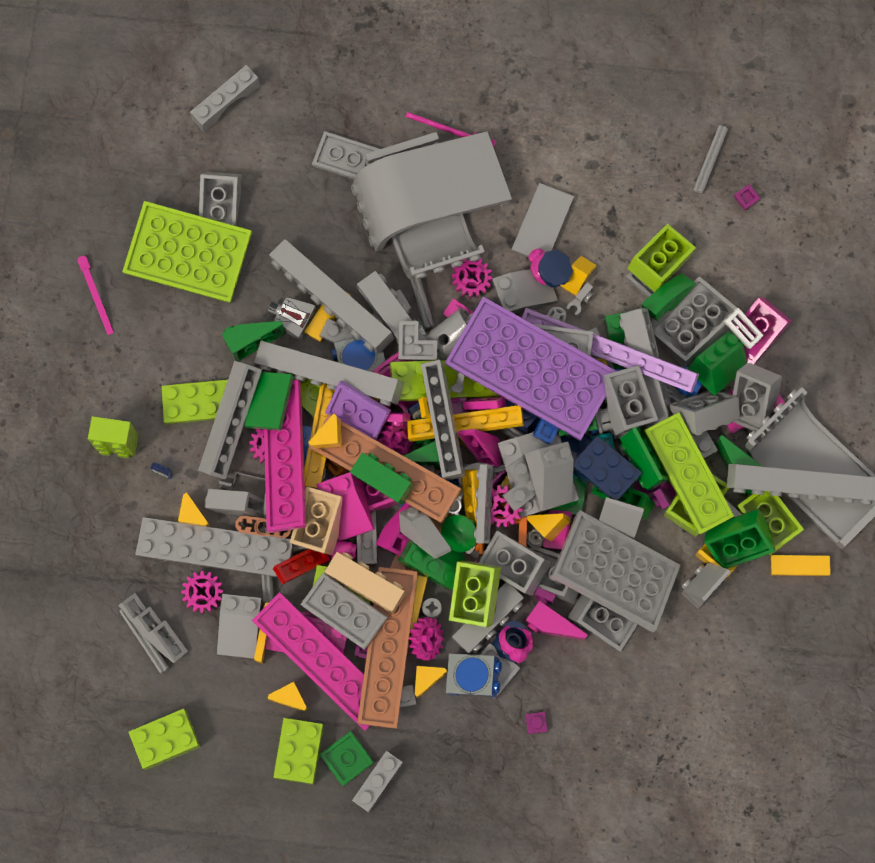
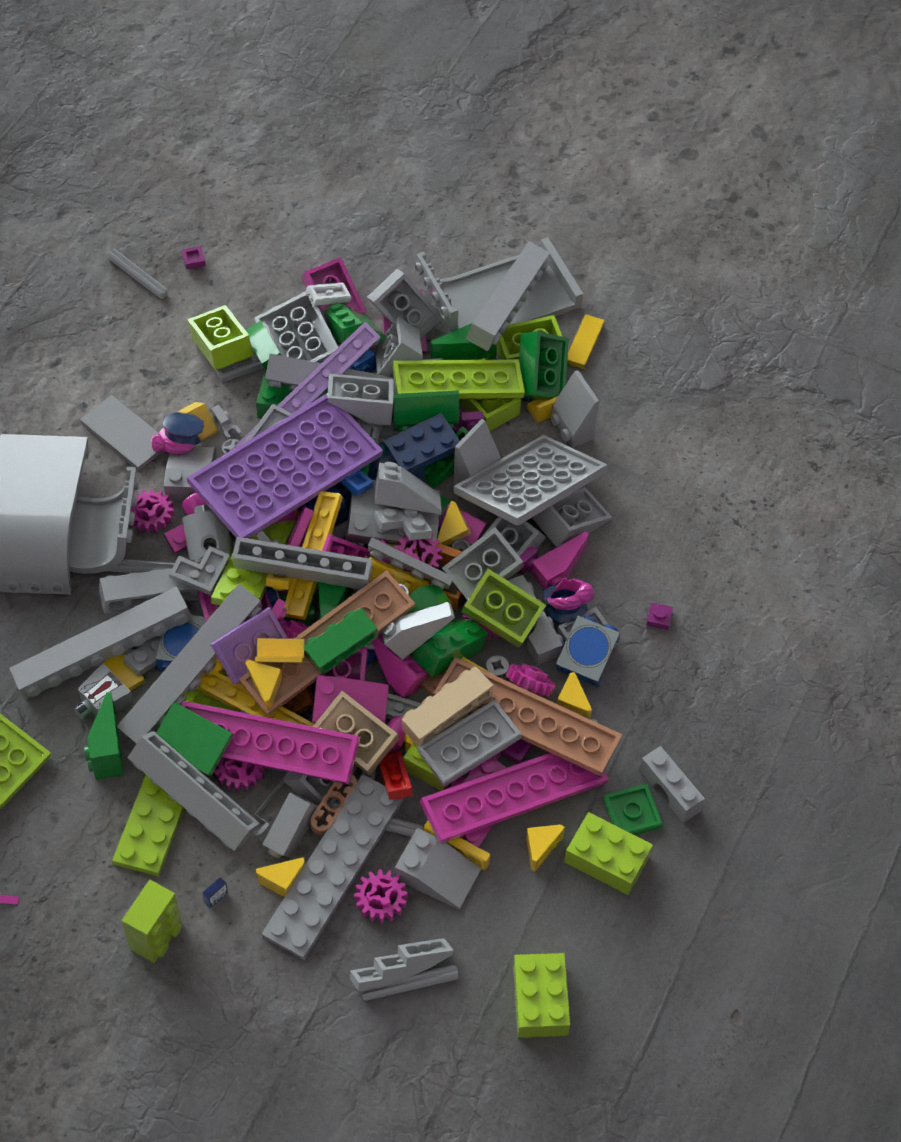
camera: 75 degrees left, 20 degrees down
(355, 436) = (280, 650): none -> yellow panel

